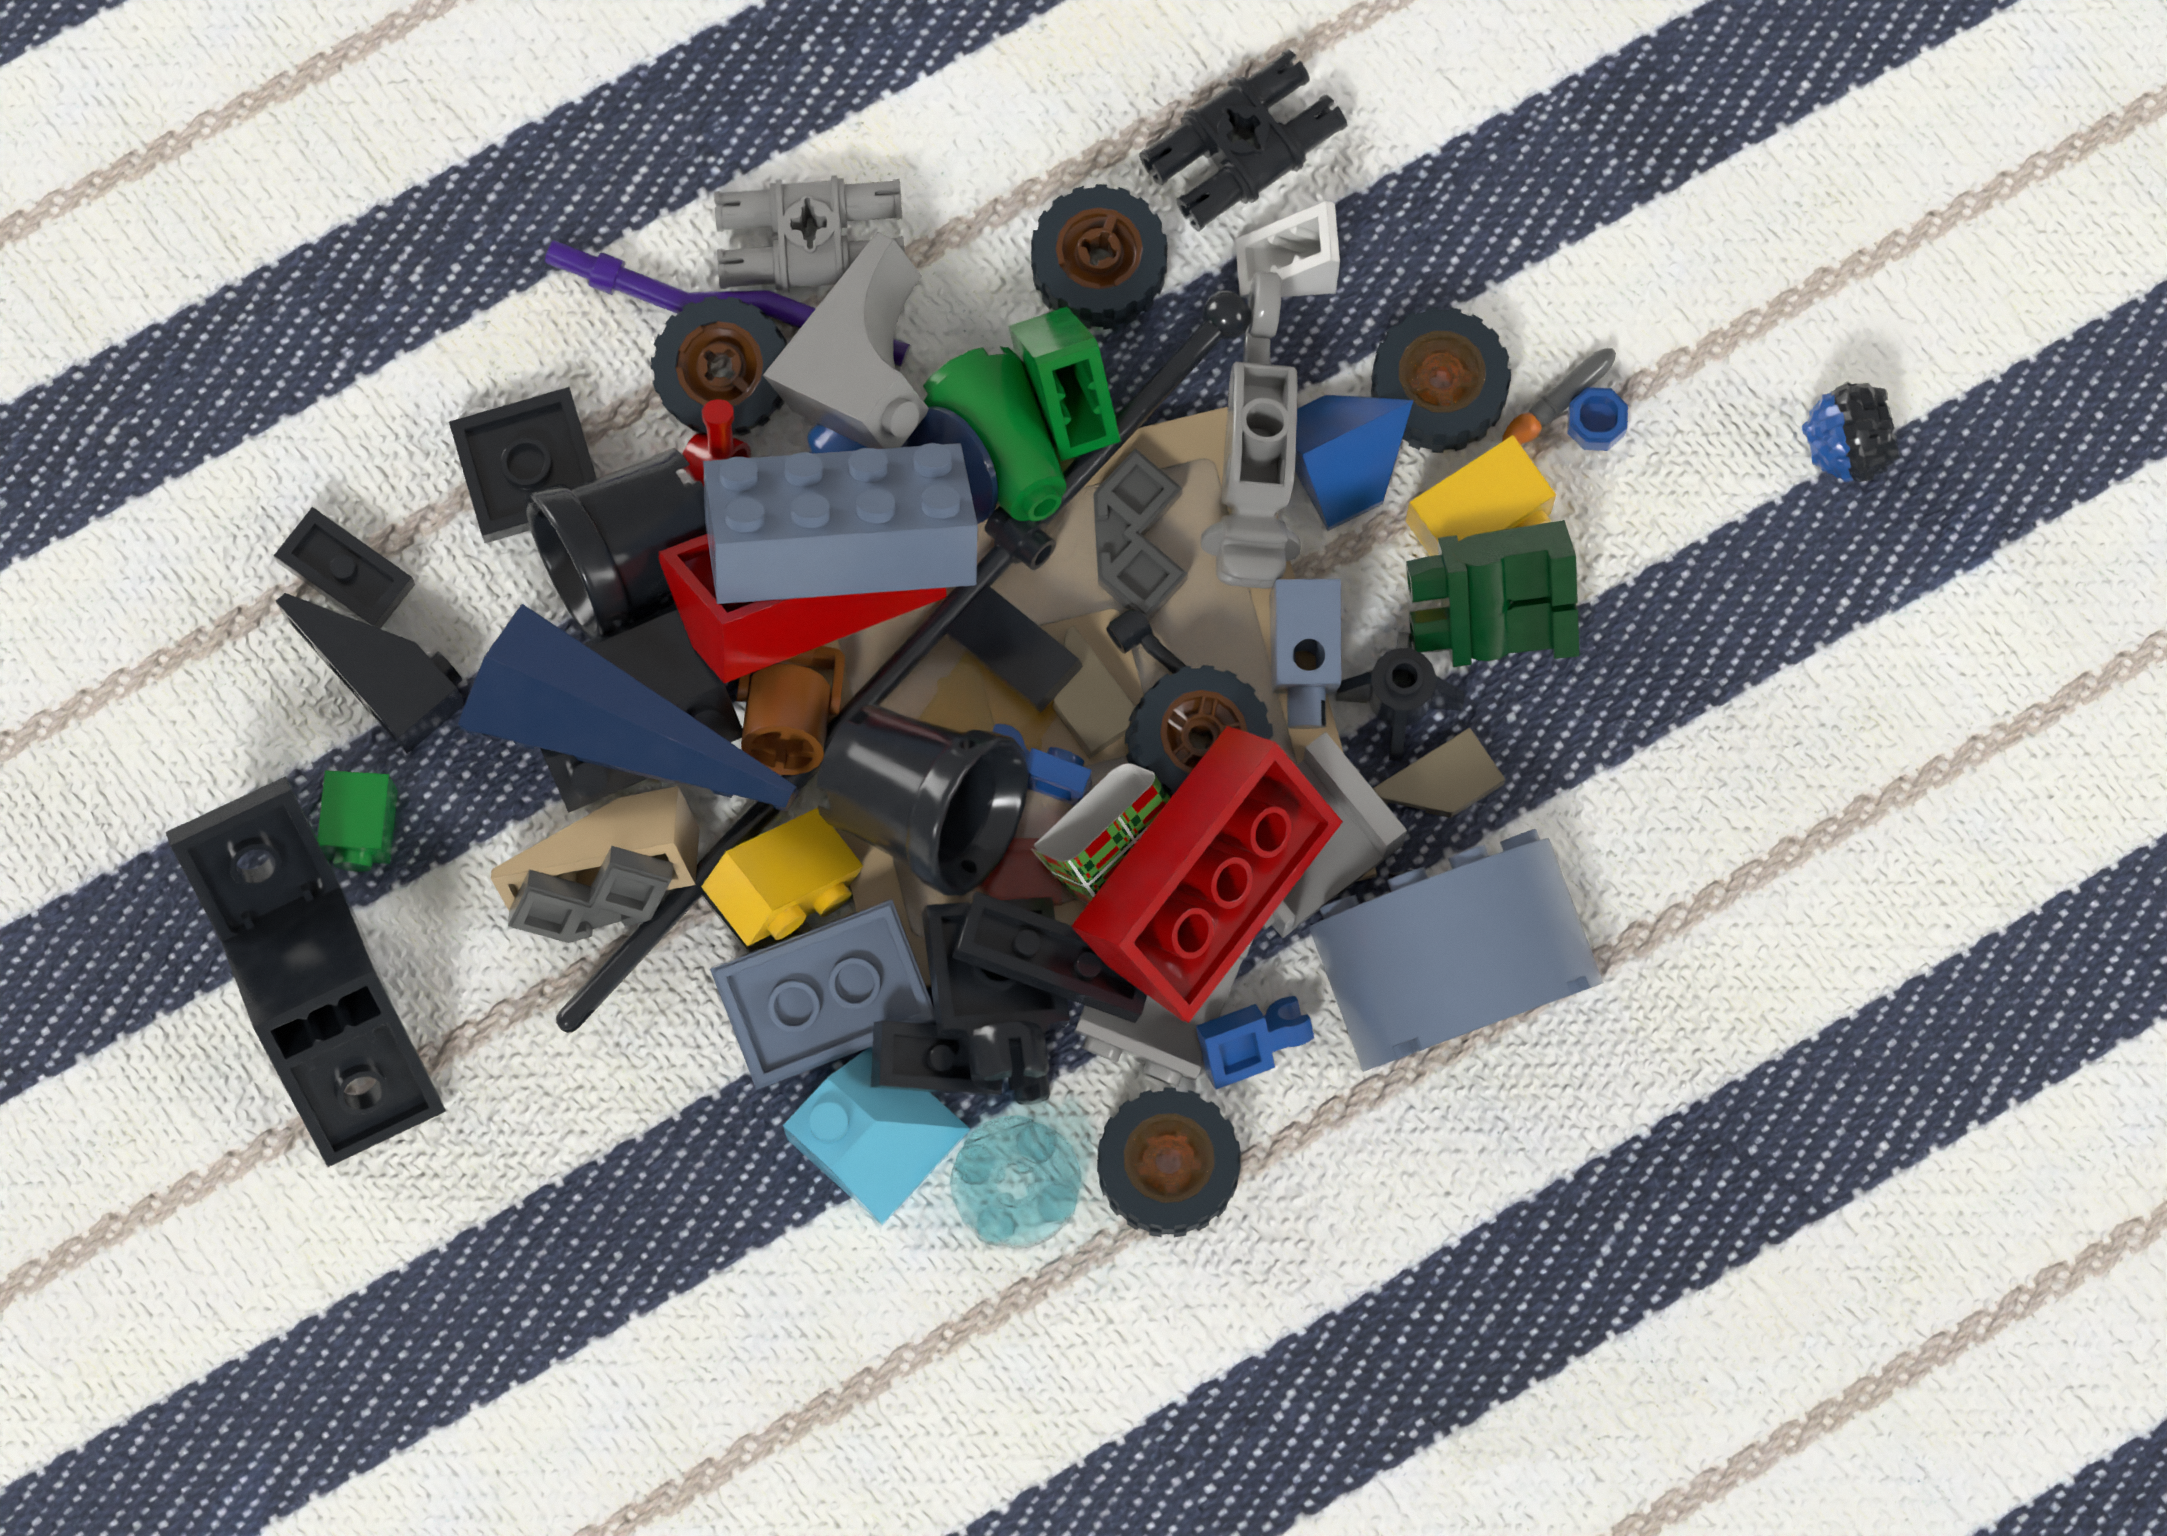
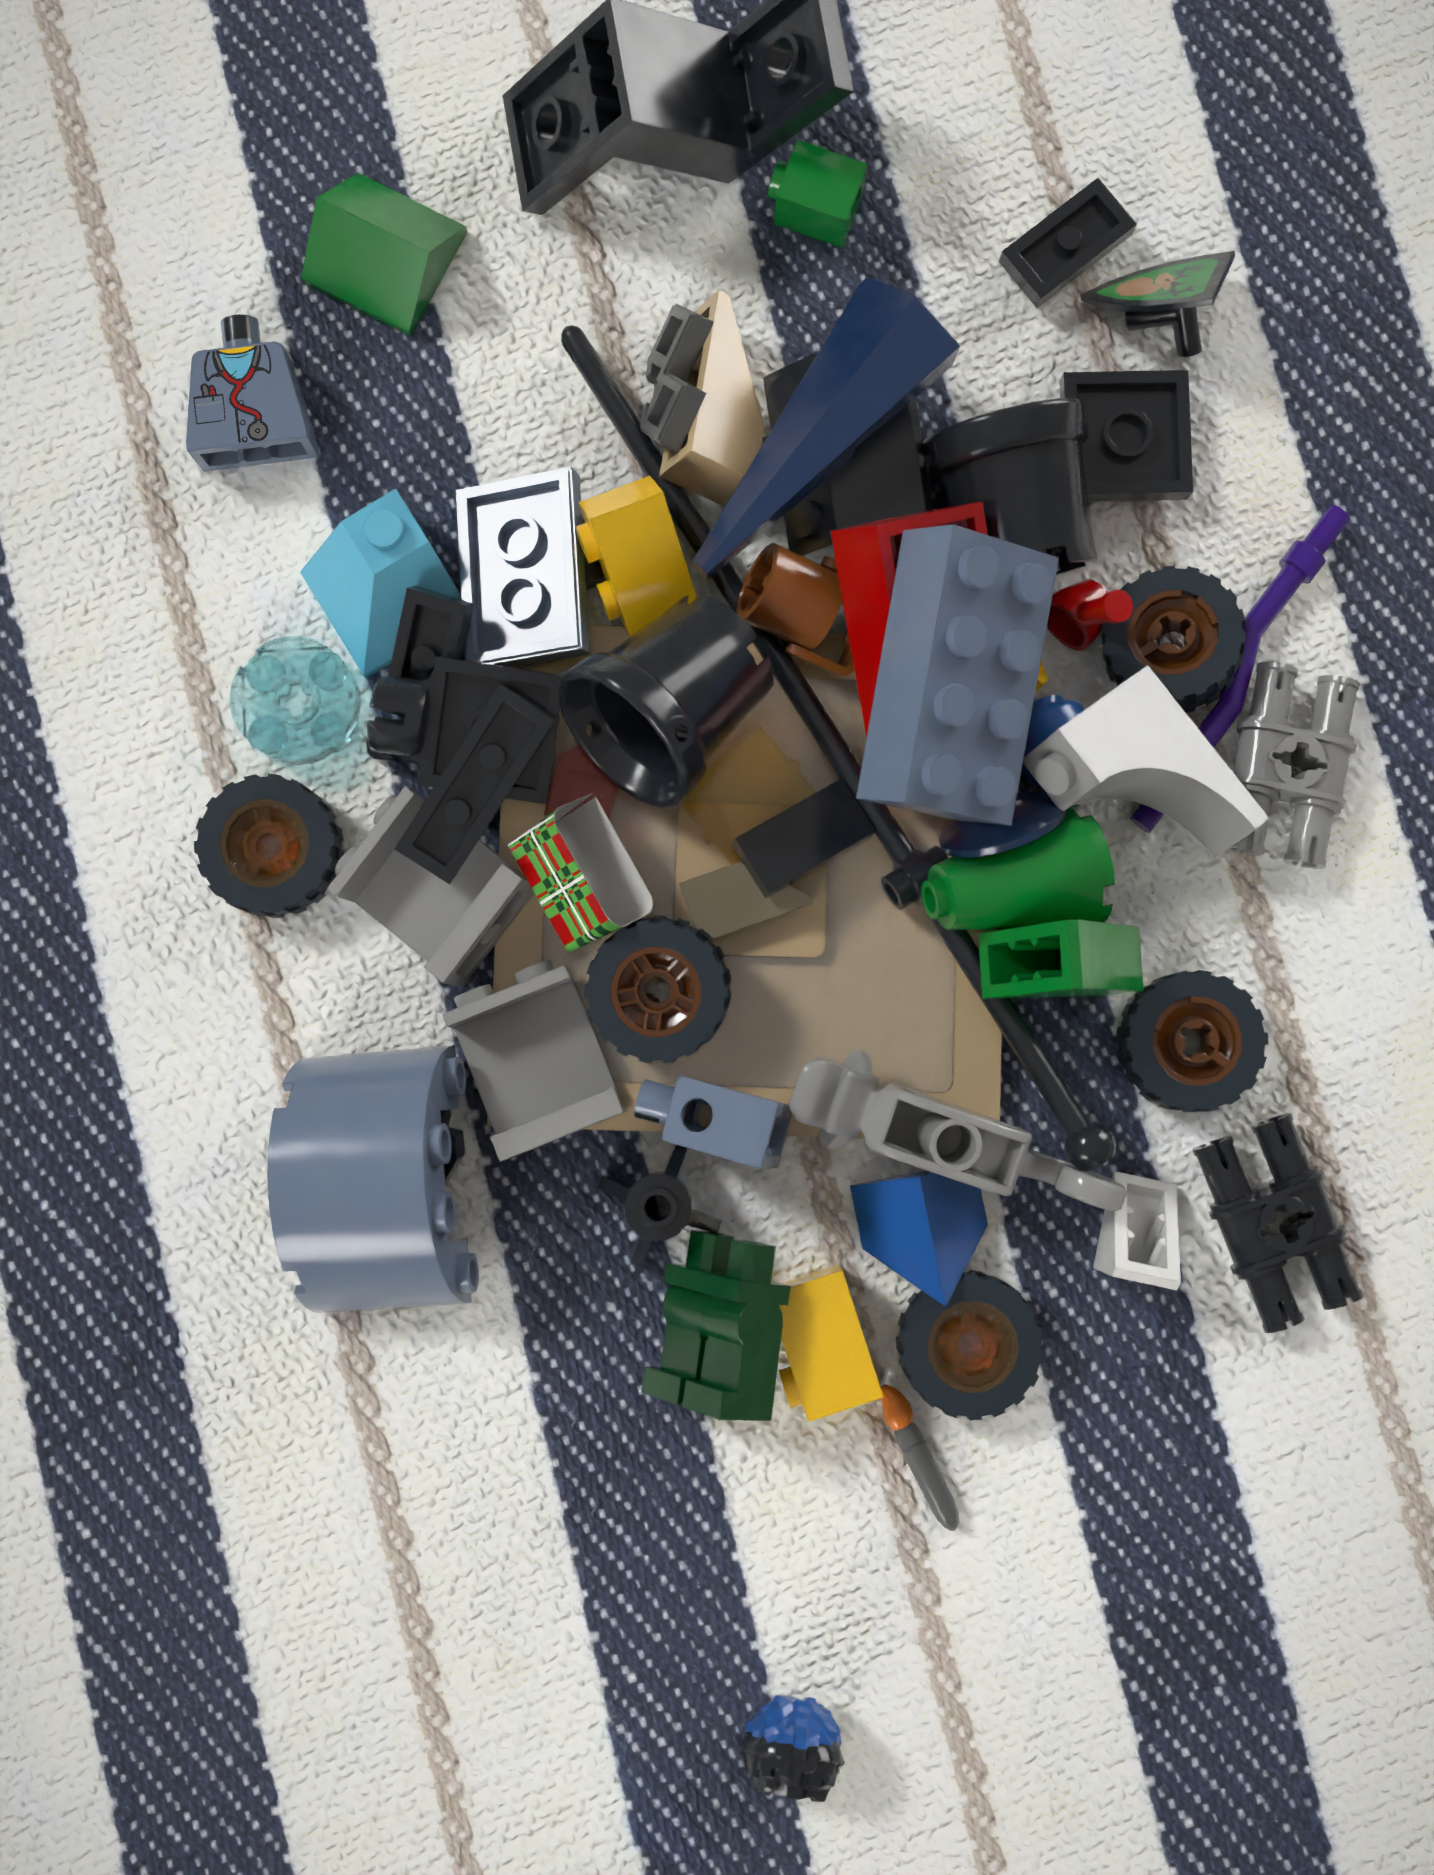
camera: 105 degrees right, 10 degrees up
(374, 461) = (1166, 296): none -> shield
(382, 670) = (954, 247): black slope -> none
(526, 1238) = (379, 251): none -> green slope
(722, 1319) = (246, 403): none -> sand blue torso
(1053, 773) = (667, 840): blue plate -> none
(1124, 512) = (915, 986): dark grey tile -> none
(1134, 629) = (792, 958): black hand -> none
(1208, 872) = (503, 946): red slope -> none
(1244, 1040) = (358, 951): blue plate -> none
(1445, 778) = (564, 1222): dark tan tile -> none
(1597, 419) = (885, 1489): blue tile -> none

